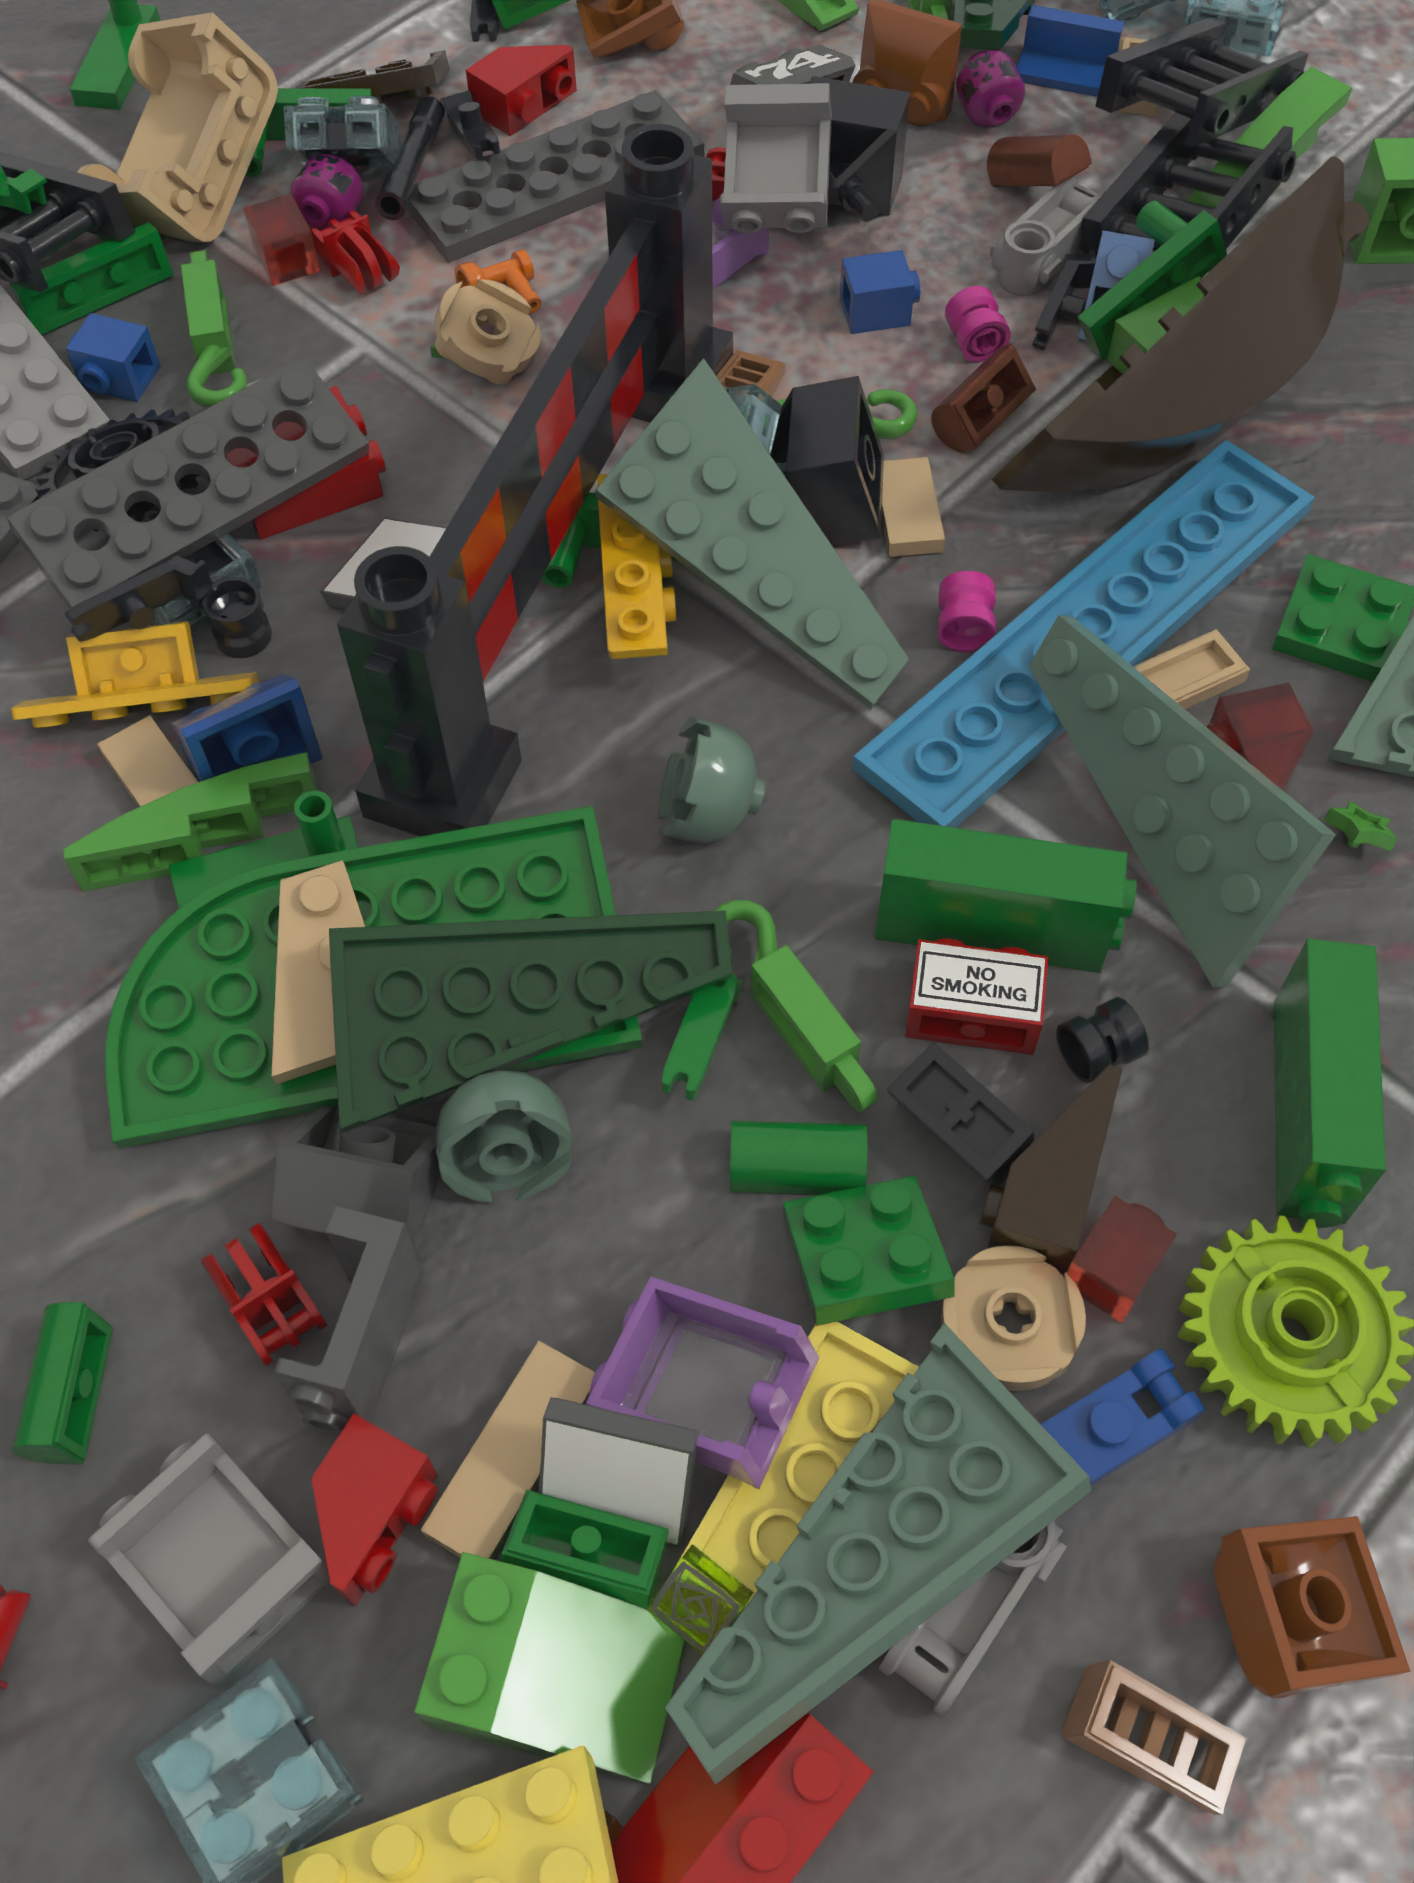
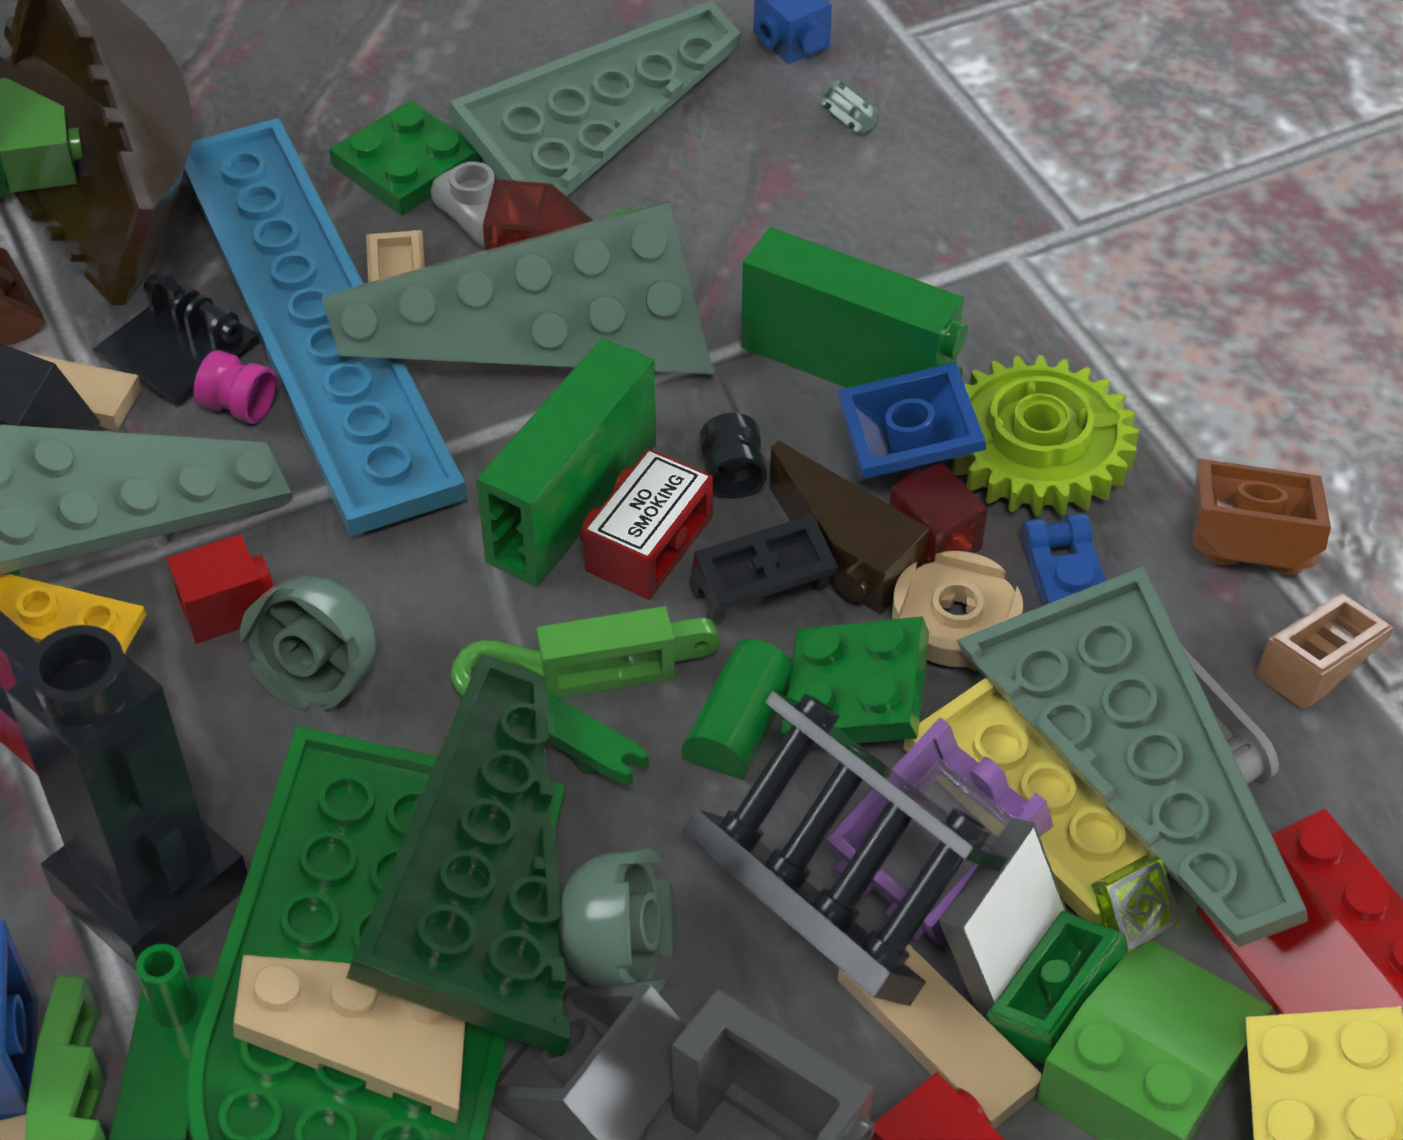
camera: 70 degrees left, 10 degrees down
(585, 1264) = (829, 916): none -> black fence
(738, 694) = (218, 585): none -> red brick
(1006, 544) = (173, 337): none -> black hinge
(1209, 1183) = (909, 422): none -> blue slope
(1318, 684) = (465, 196): none -> light grey piece

